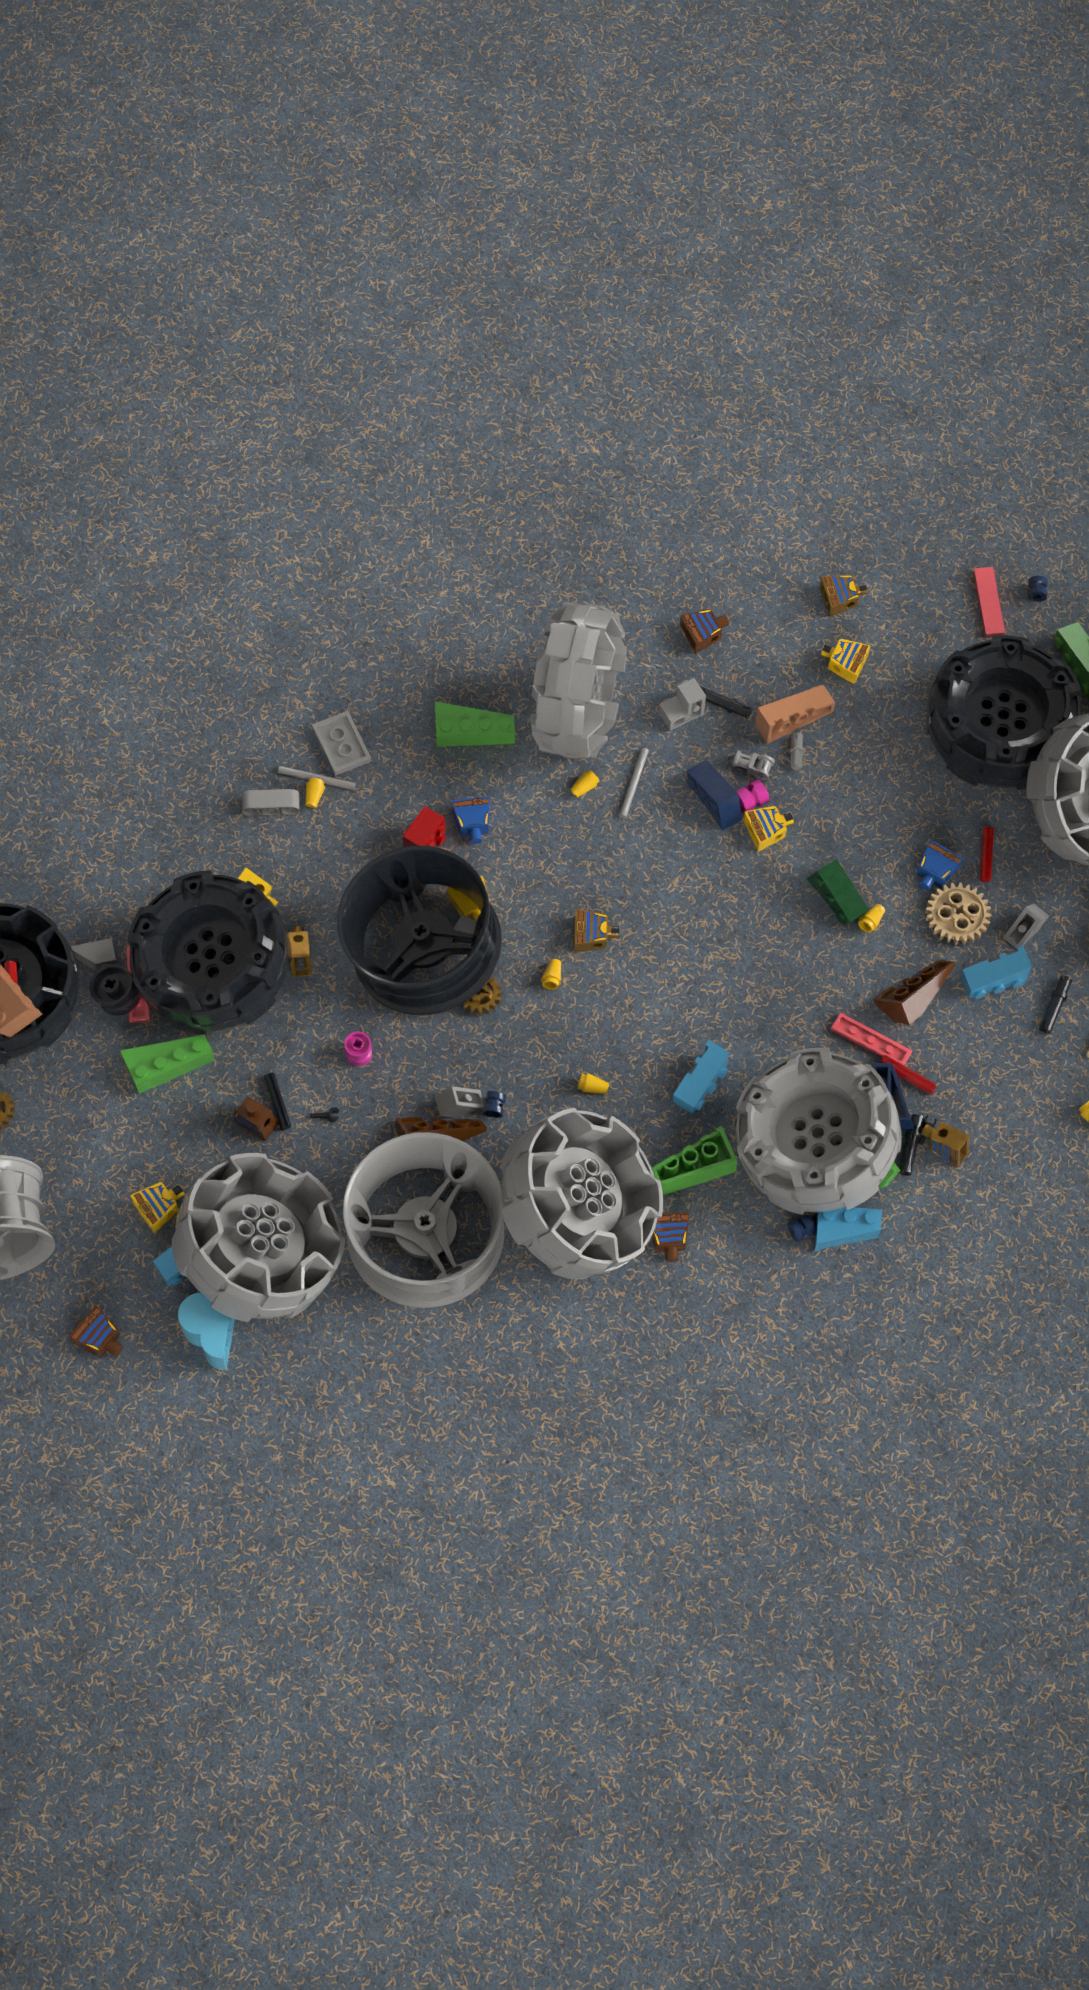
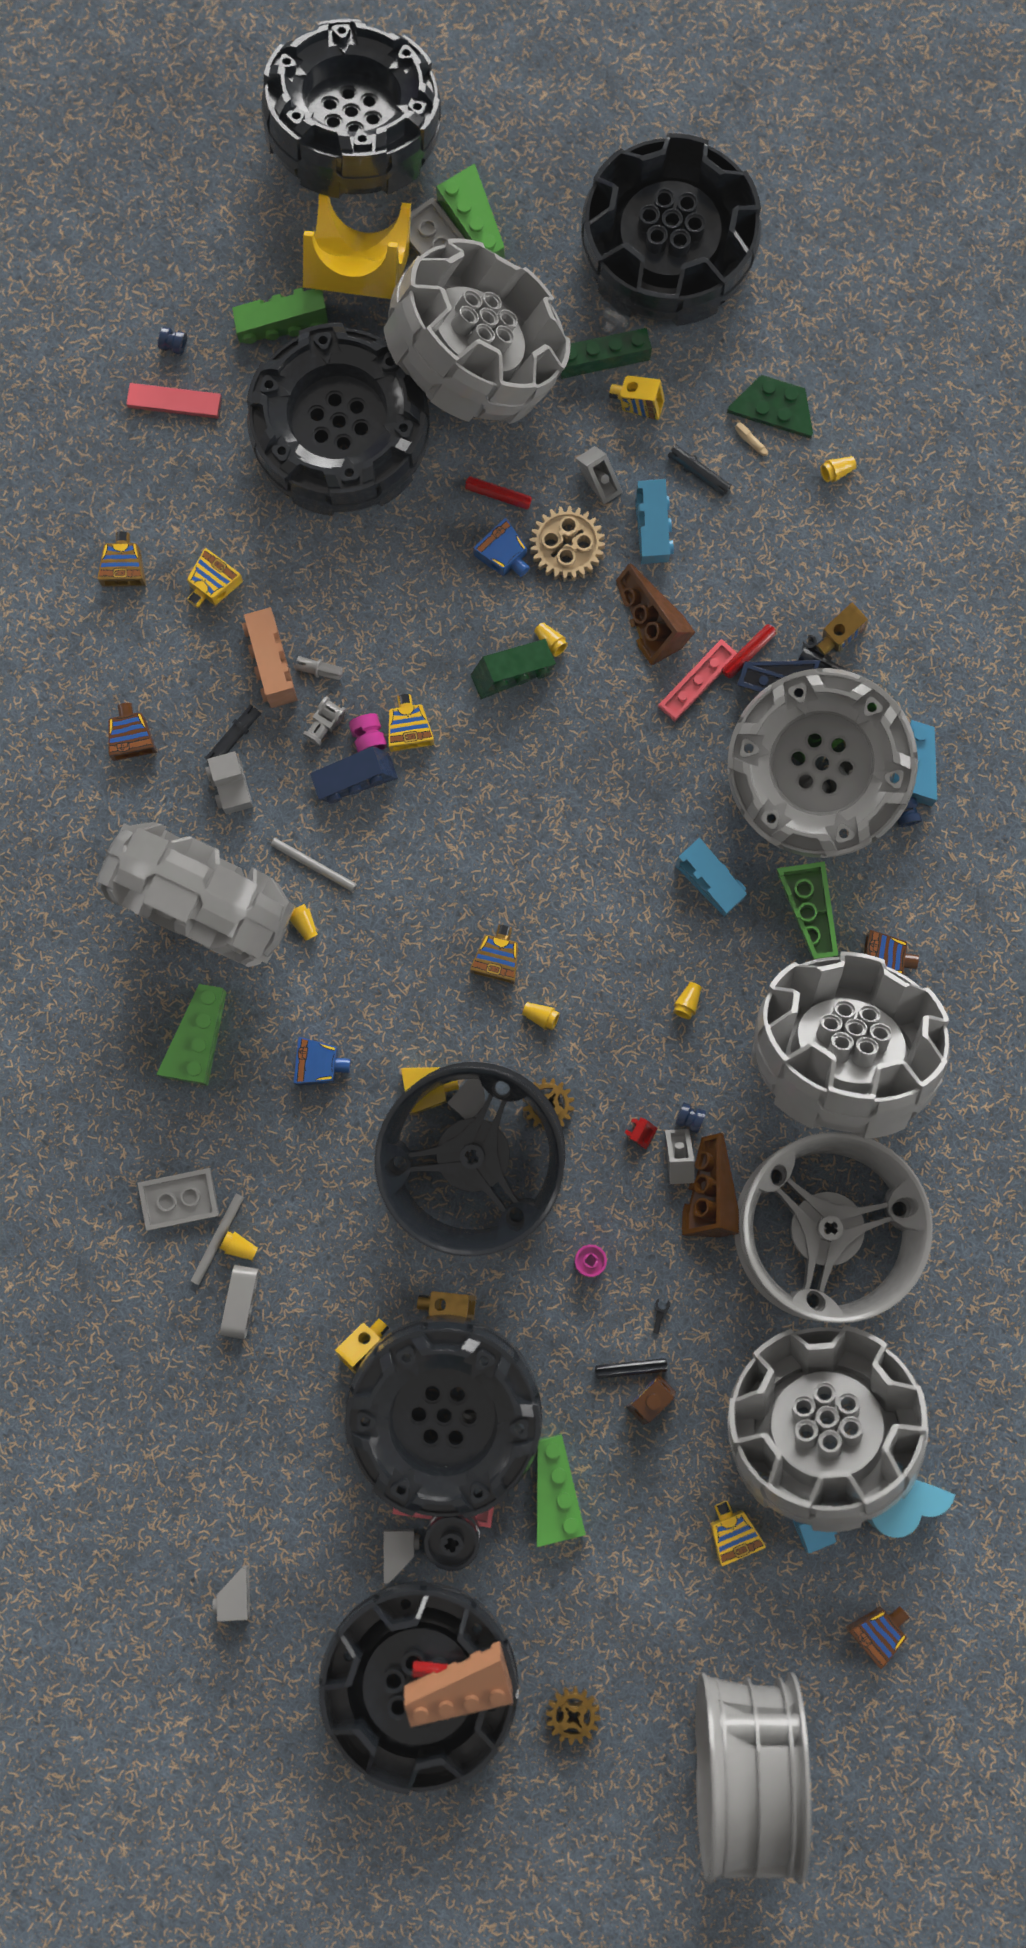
camera: 75 degrees left, 15 degrees up
(42, 846) = (234, 1598): none -> light grey slope
(426, 830) = (333, 1125): red brick -> none
(473, 1070) = (642, 1132): none -> red tile

